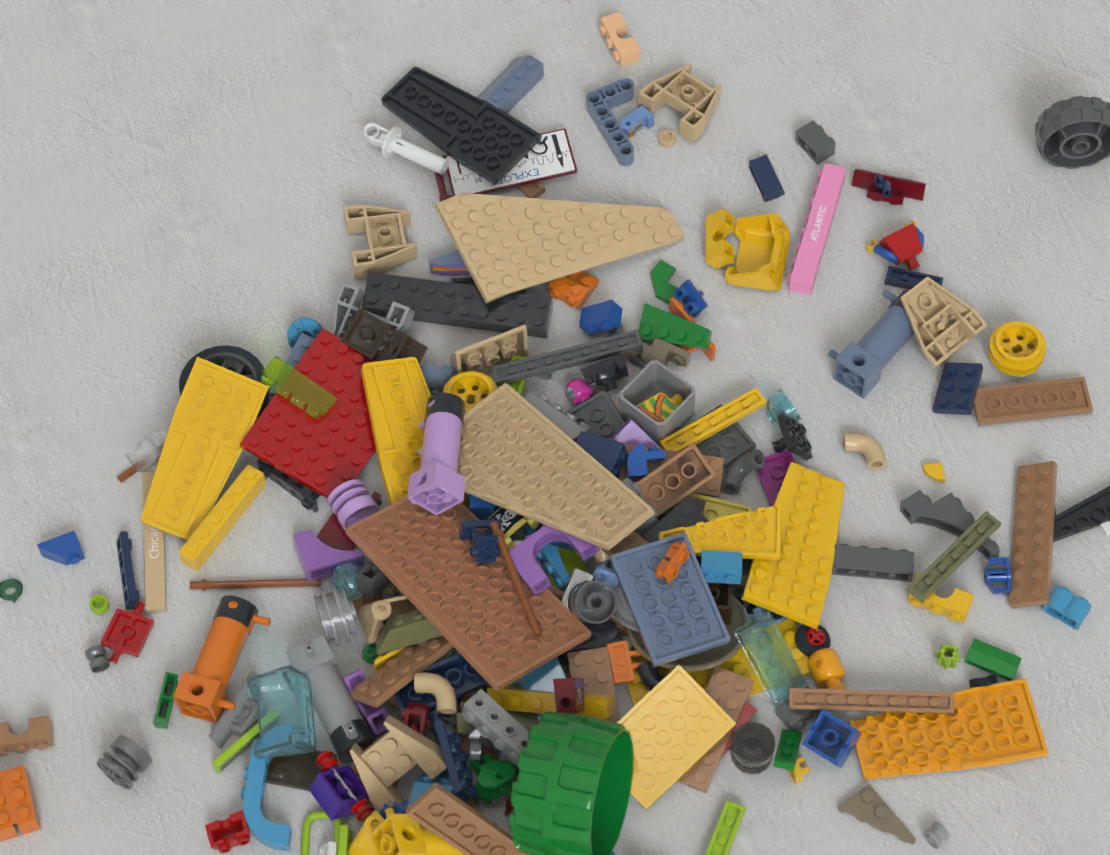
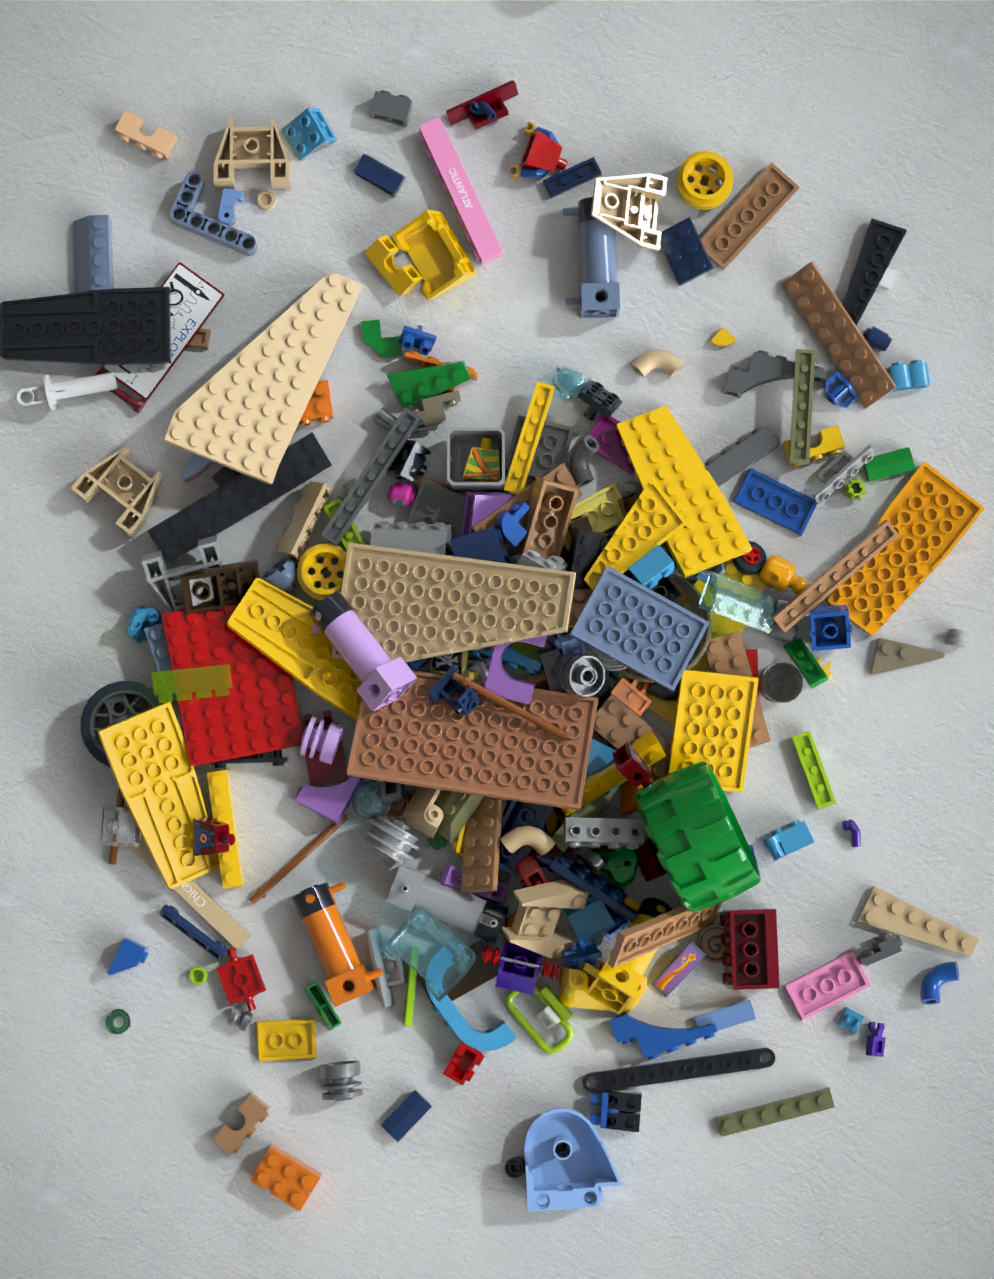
camera: 45 degrees left, 25 degrees up
(115, 705) = (286, 1039): none -> yellow tile
(146, 836) = (406, 1115): none -> dark blue piece
(204, 506) = (211, 836): none -> dark red torso
(600, 317) = (363, 417): blue brick -> none
(677, 555) = (621, 592): orange hinge -> none
(740, 113) = (308, 132): none -> dark azure bracket
(872, 619) = (775, 502): none -> blue tile
(946, 632) = (839, 470): none -> light grey bracket
(985, 681) = (897, 488): black tile -> none
(1064, 561) = (877, 338): none -> dark blue brick

